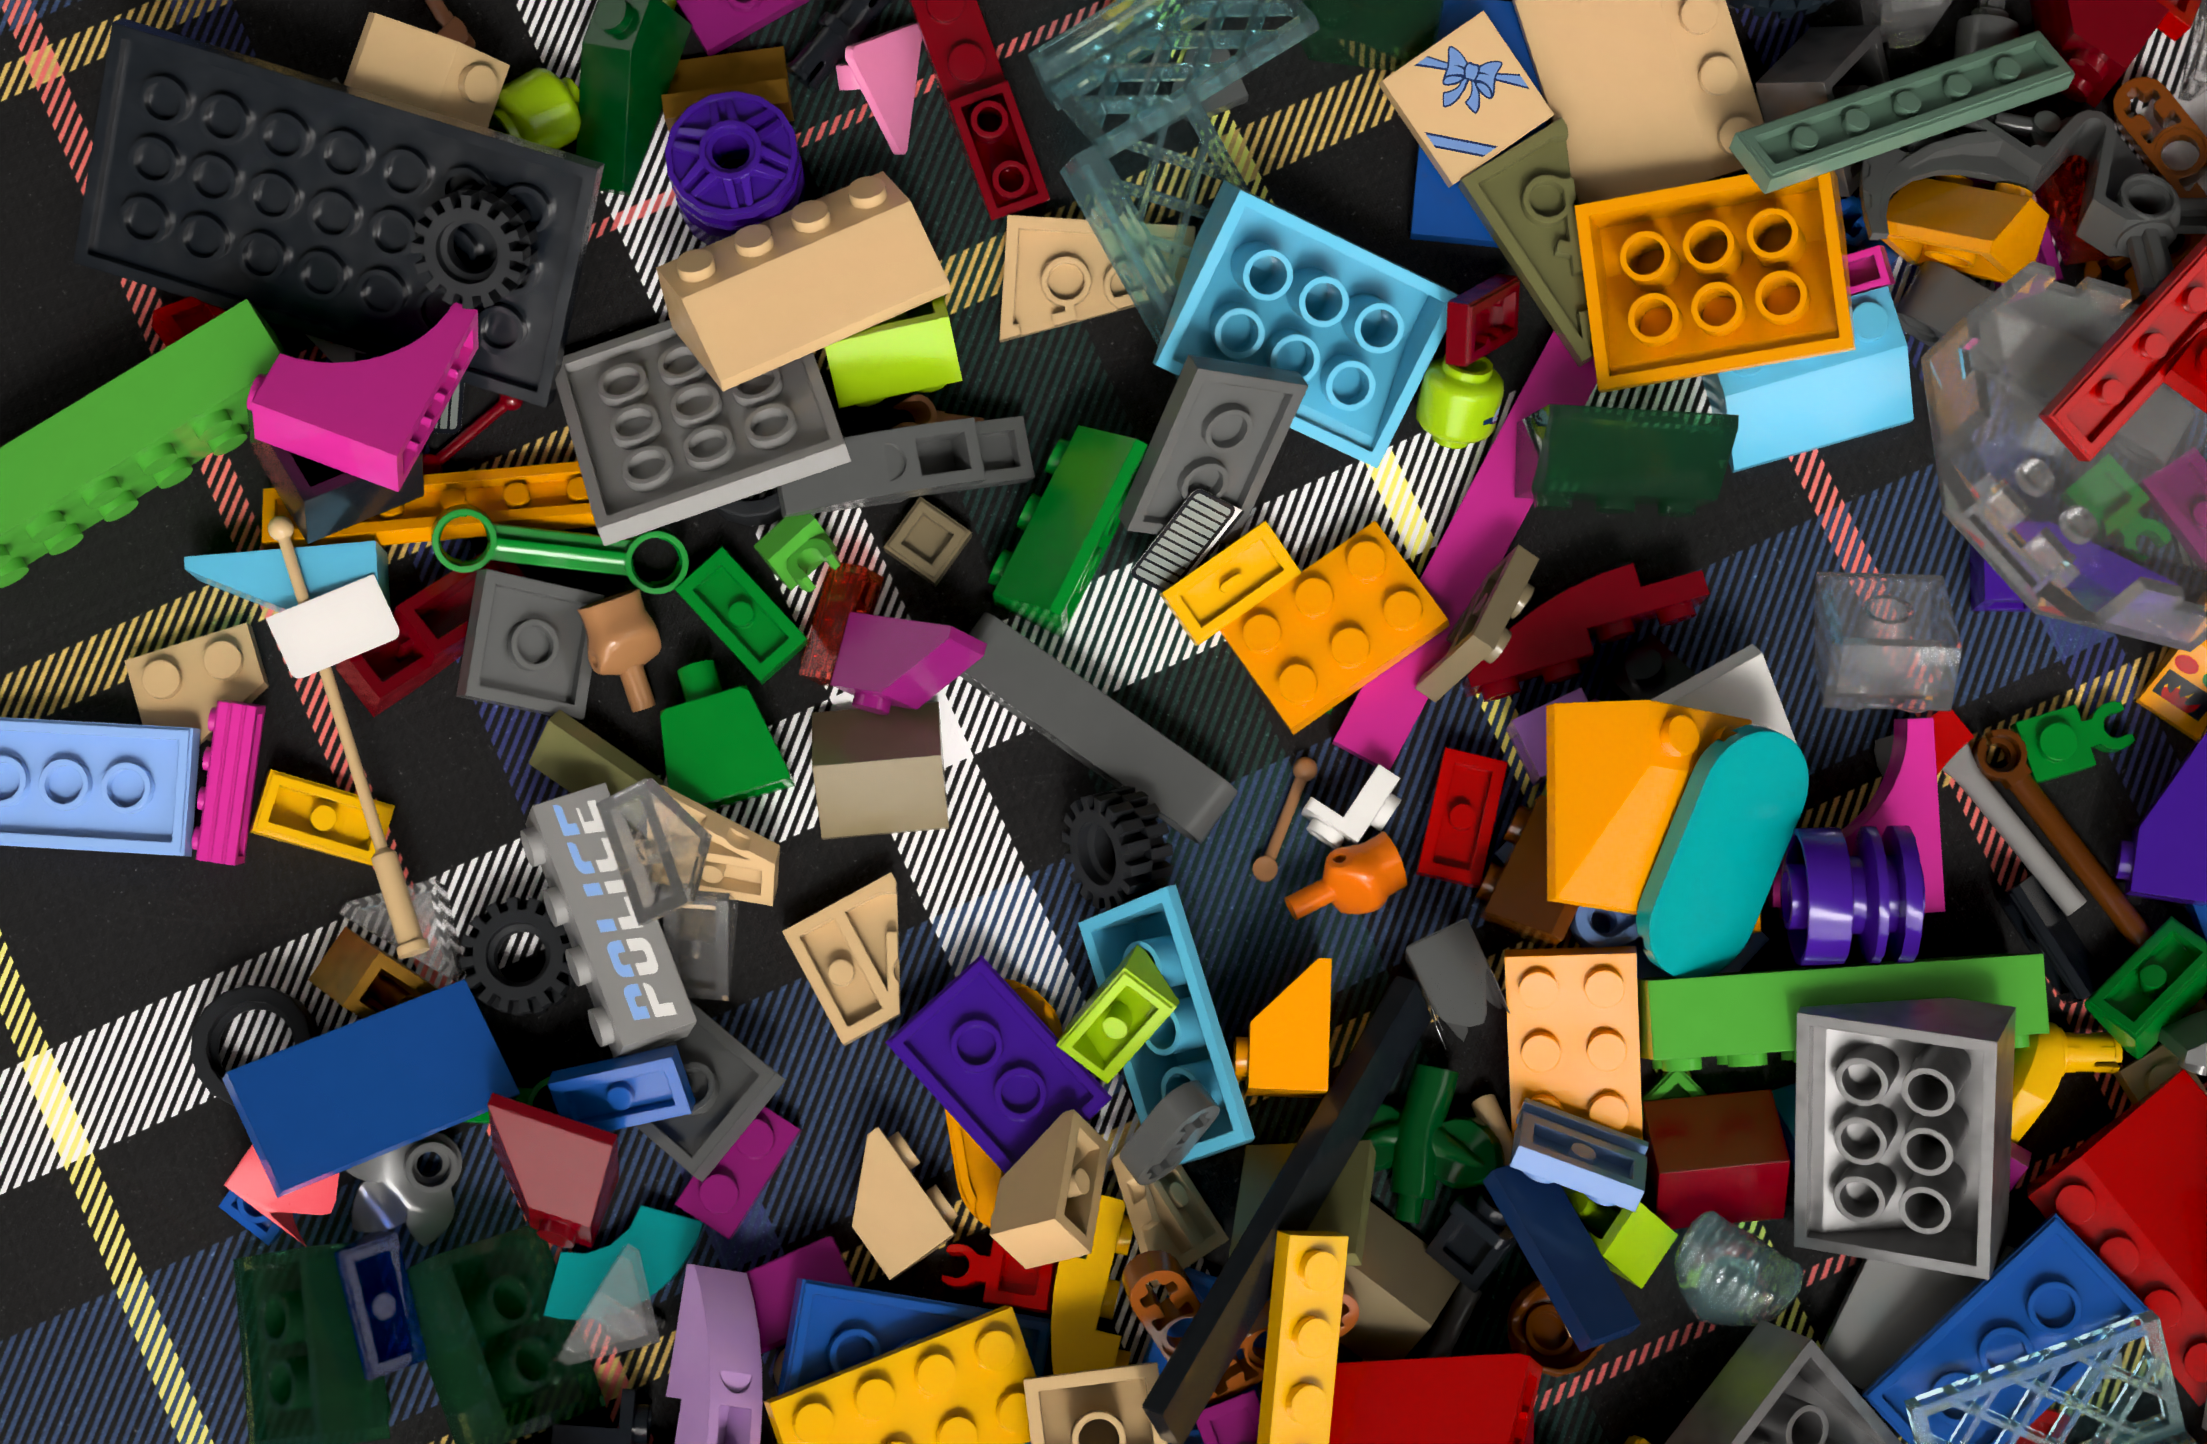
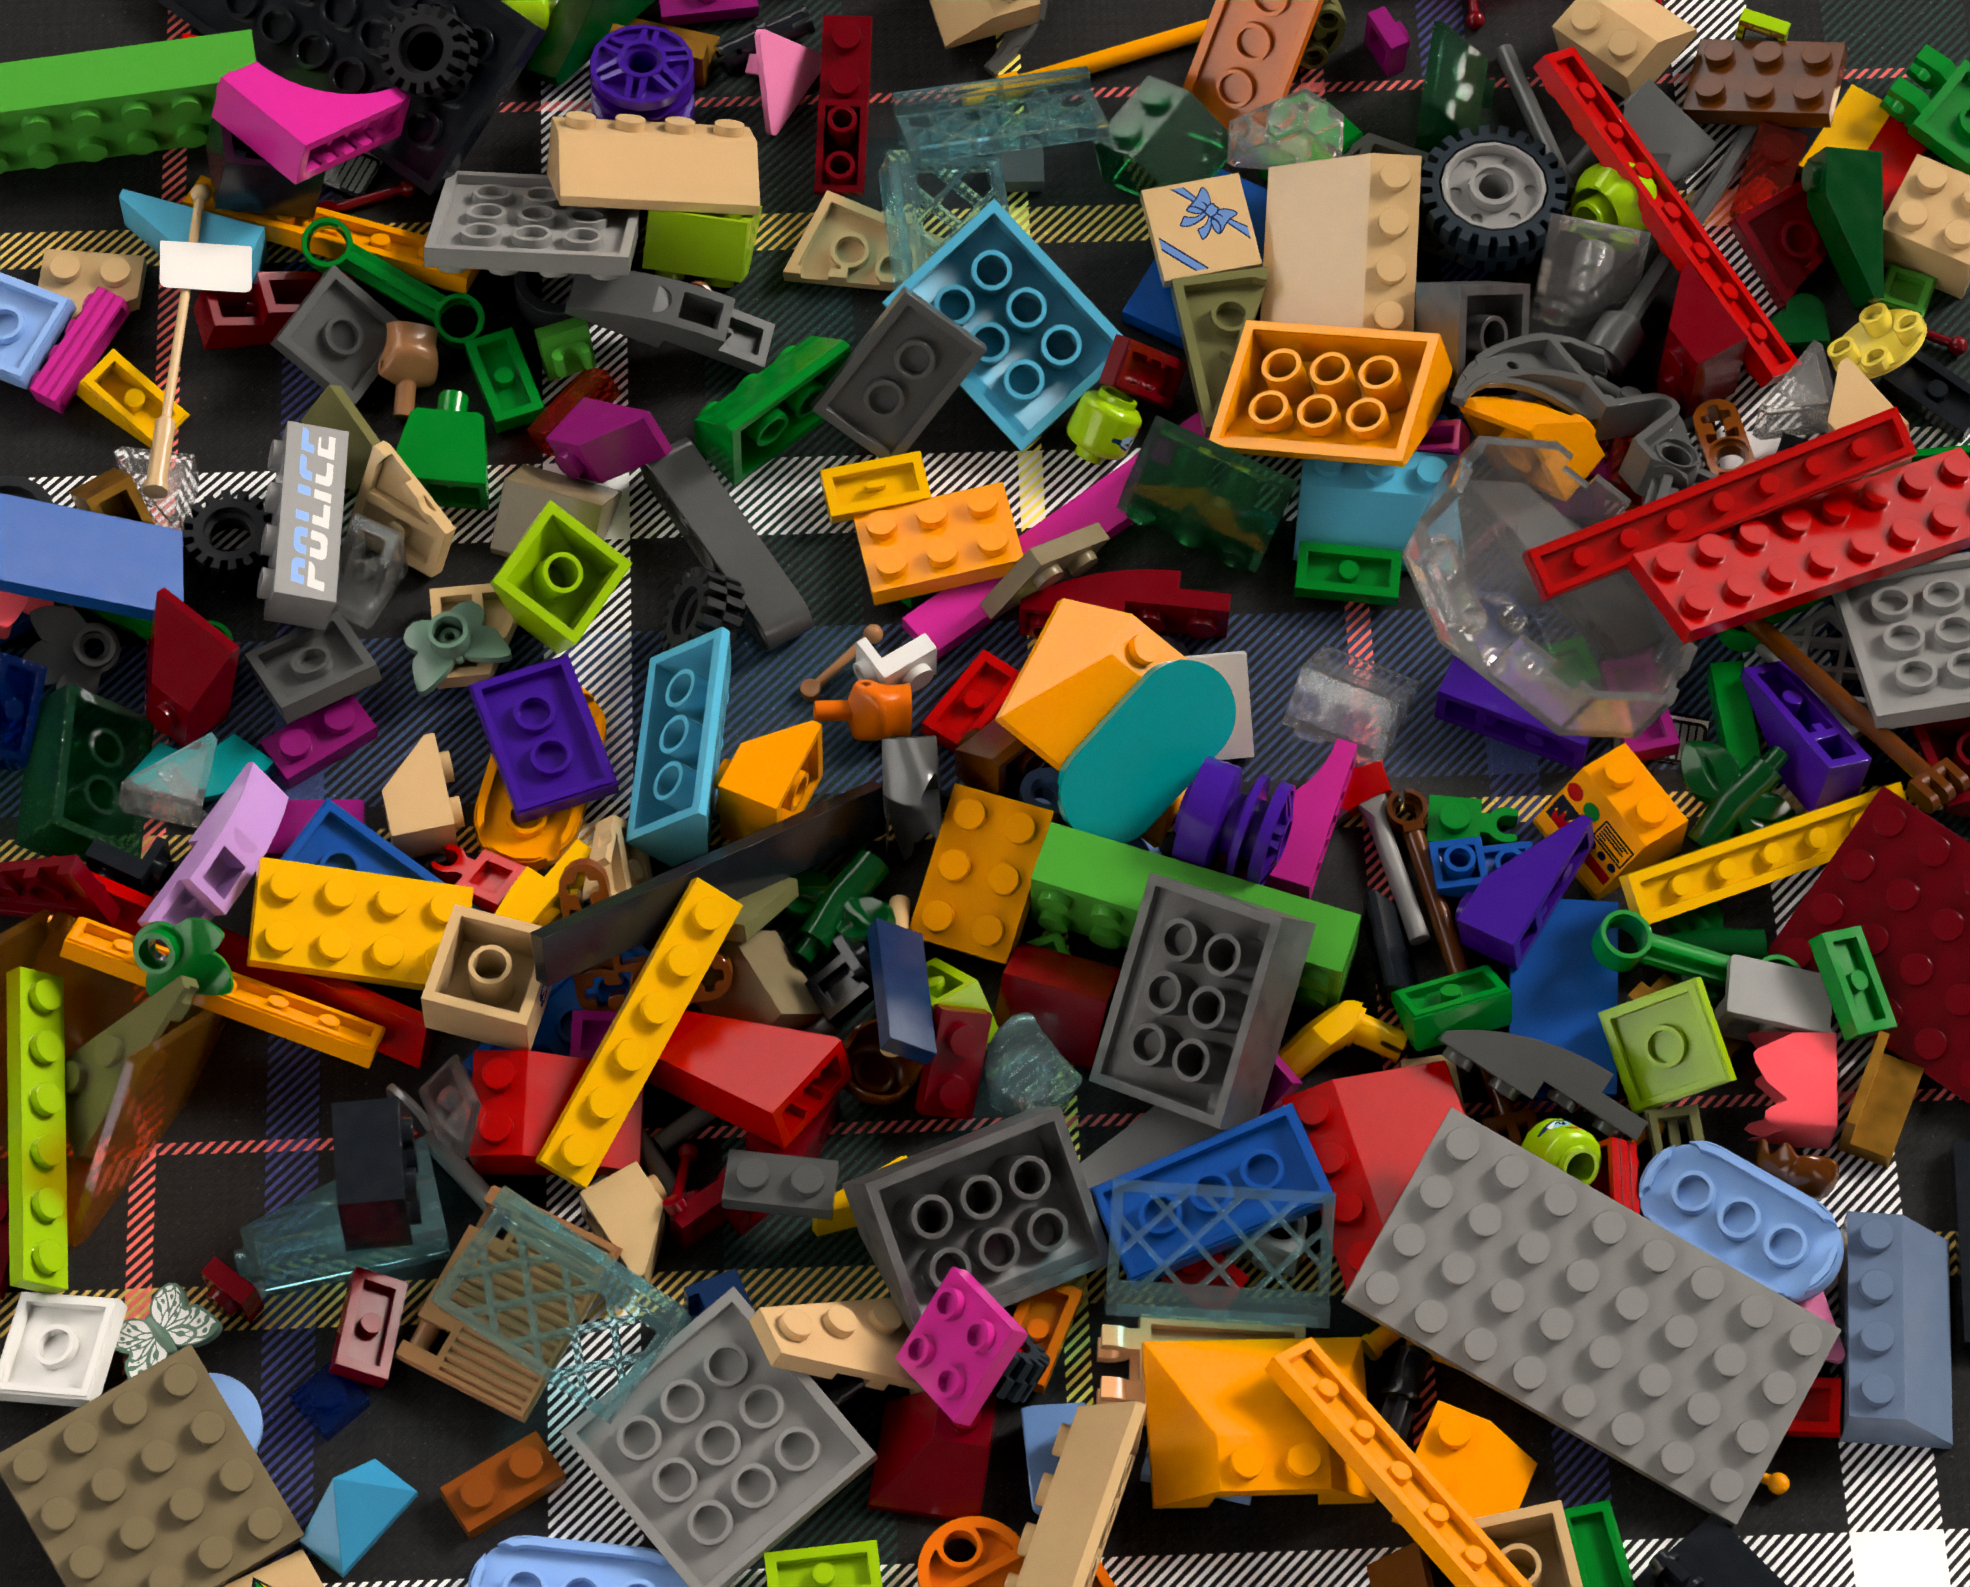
camera: 20 degrees right, 20 degrees down
(624, 1090) = (266, 635): blue plate -> none
(655, 848) = (362, 472): clear slope -> none
(842, 996) = (449, 641): none -> sand green animal
(927, 541) = (665, 385): dark tan tile -> none
(939, 873) = (558, 578): none -> lime slope
(1052, 1195) = (540, 821): tan slope -> none
(1119, 1016) = (646, 718): lime slope -> none
(1169, 1132) = (640, 801): dark grey beam -> none
(1186, 540) = (857, 438): sticker -> none
(1579, 1155) = (960, 947): plate -> none
(1649, 1281) = (953, 1076): none -> dark red plate
(1810, 475) = (1348, 573): none -> green plate
(1900, 111) = (1514, 330): sand green tile -> none
(2111, 792) = (1463, 862): none -> blue slope

